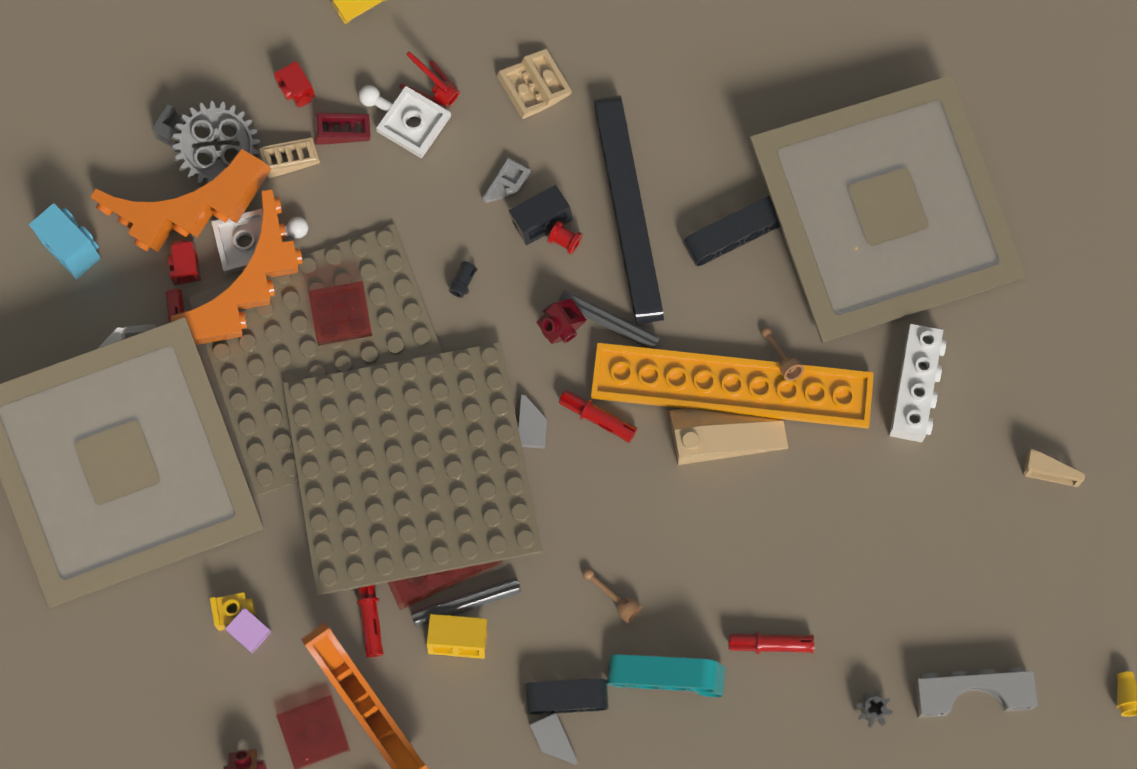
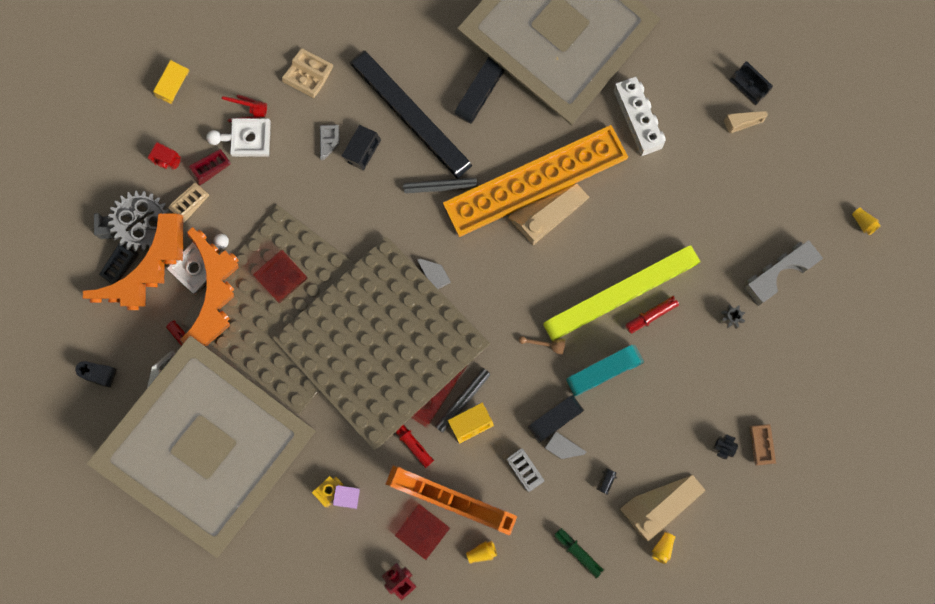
camera: 30 degrees left, 5 degrees up
(51, 299) = (98, 374): none -> black piece
(66, 240) = (84, 332): medium azure brick -> none
(162, 189) = (128, 261): none -> black slope
(183, 263) = (165, 303): red brick -> none
(462, 280) = (339, 213): black pin -> none
(476, 725) = (515, 456): none -> light grey slope
(561, 321) = (414, 202): dark red brick -> none
(565, 237) = (384, 152): red bush -> none
(598, 416) = (469, 245): red axle -> none
(751, 591) = (621, 293): none -> neon yellow beam
(789, 367) = (563, 149): medium nougat hinge -> none
(1091, 428) = (751, 83): none -> black hinge

